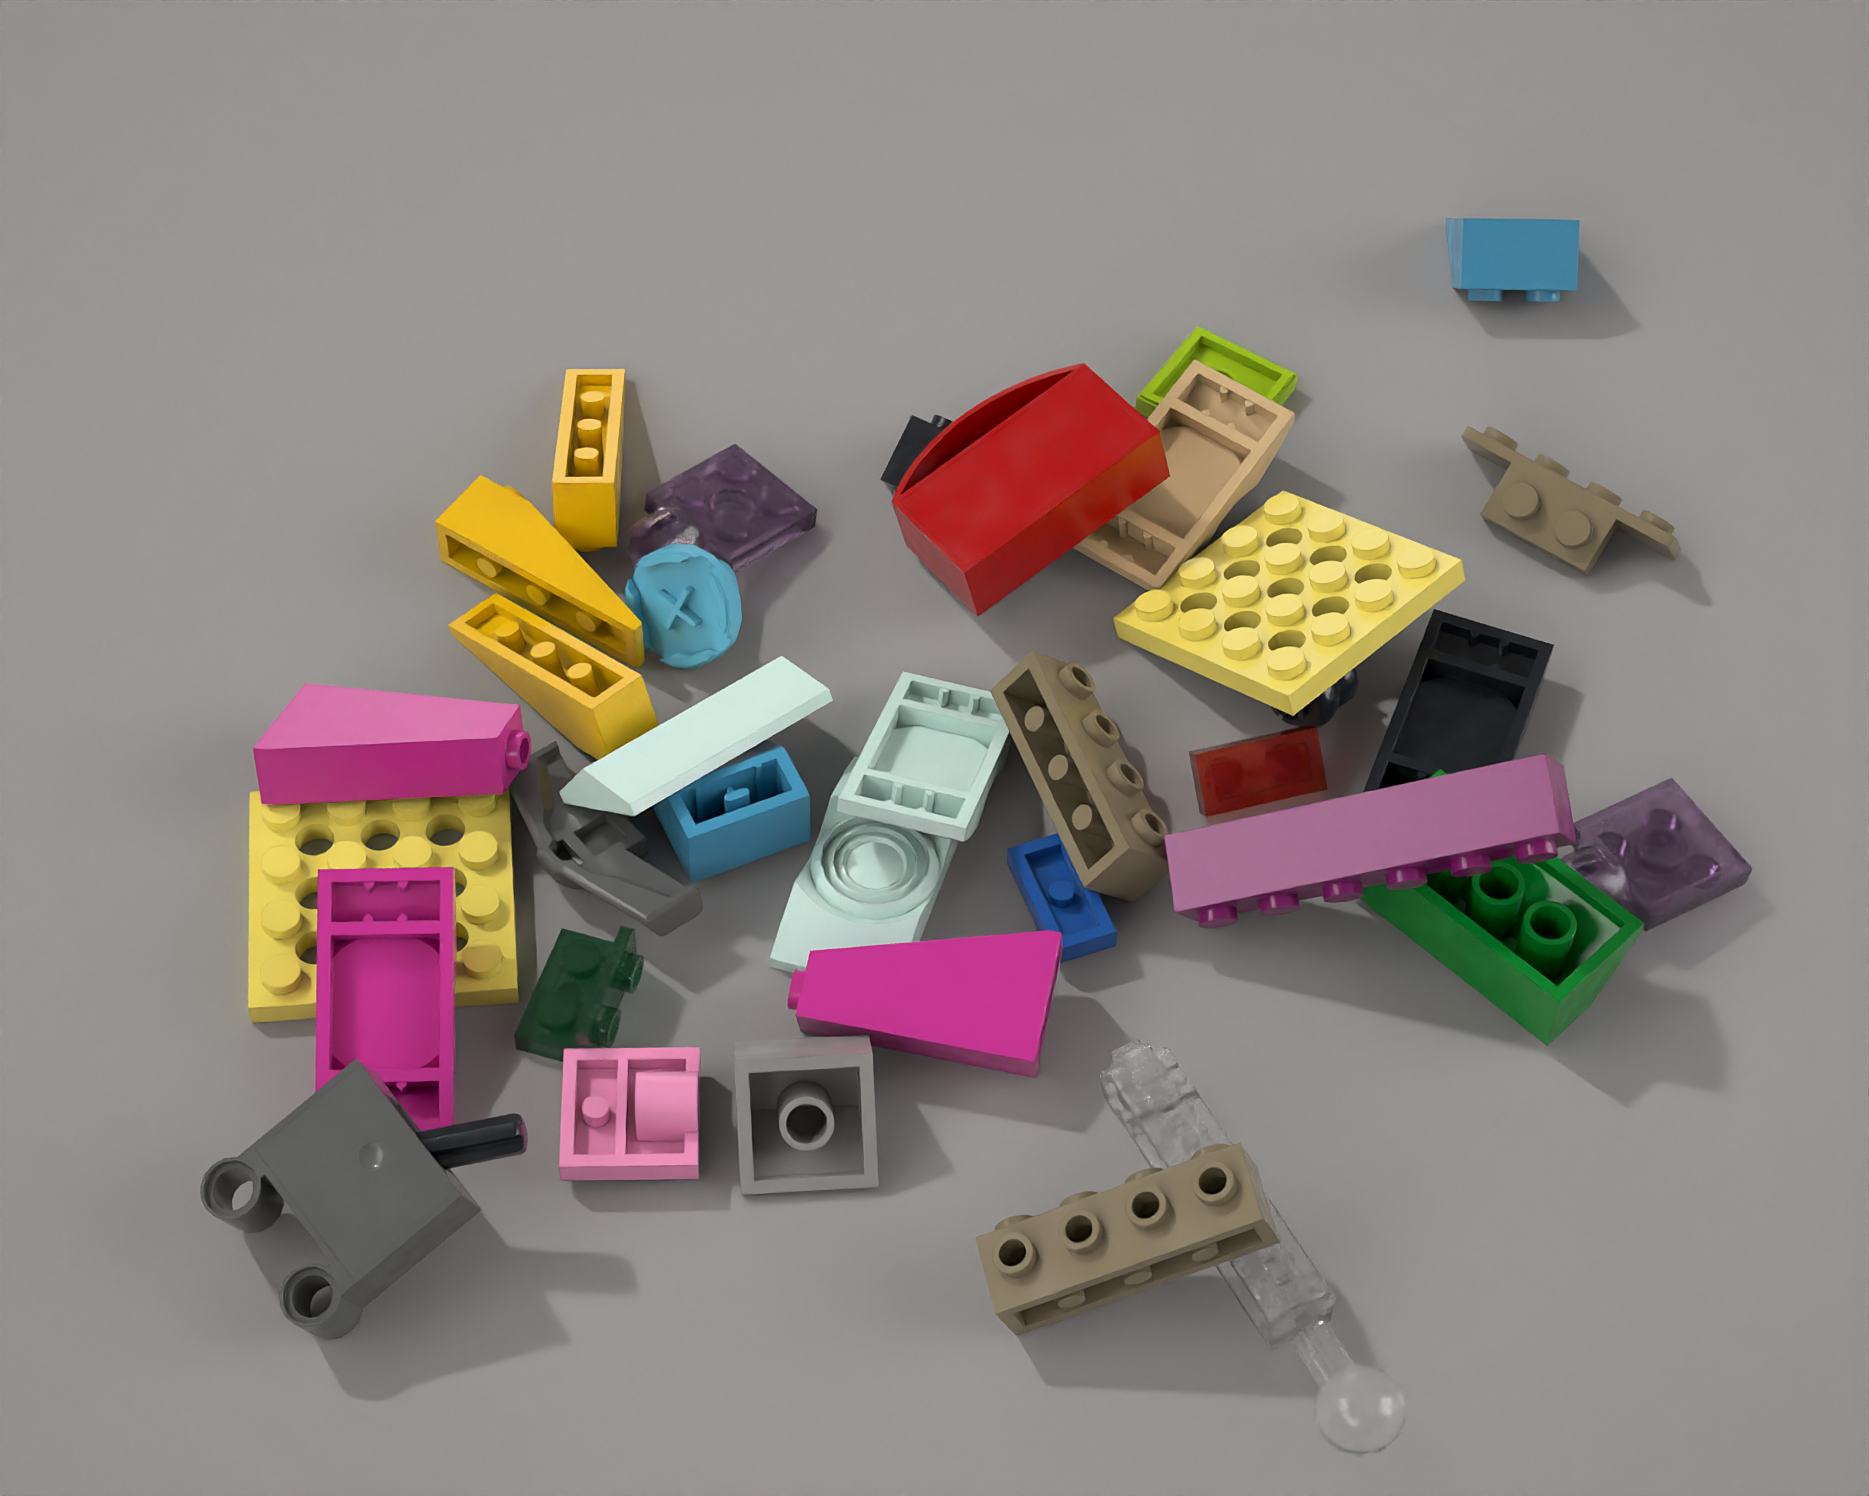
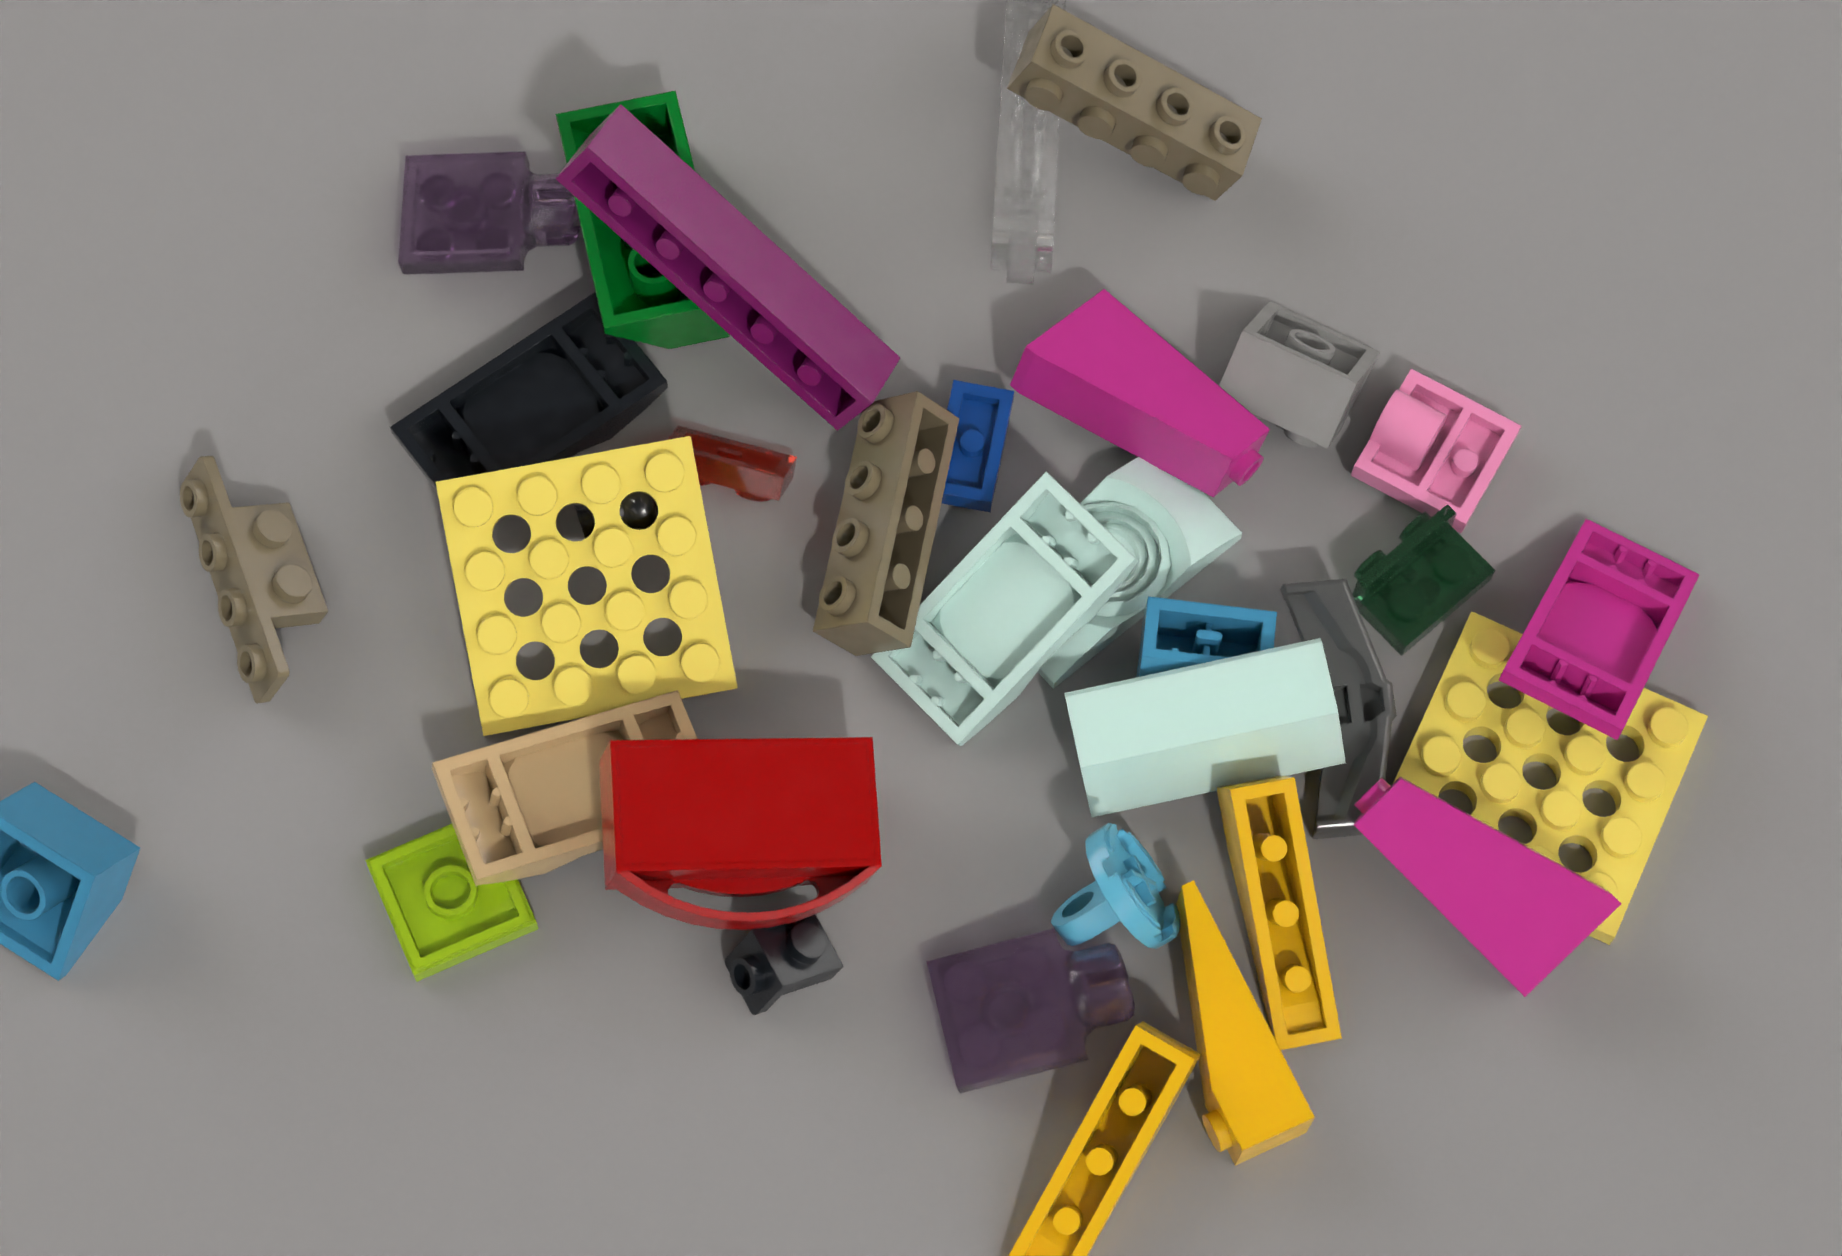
camera: 150 degrees left, 15 degrees up
(361, 1186) = (1704, 461): dark grey piece -> none

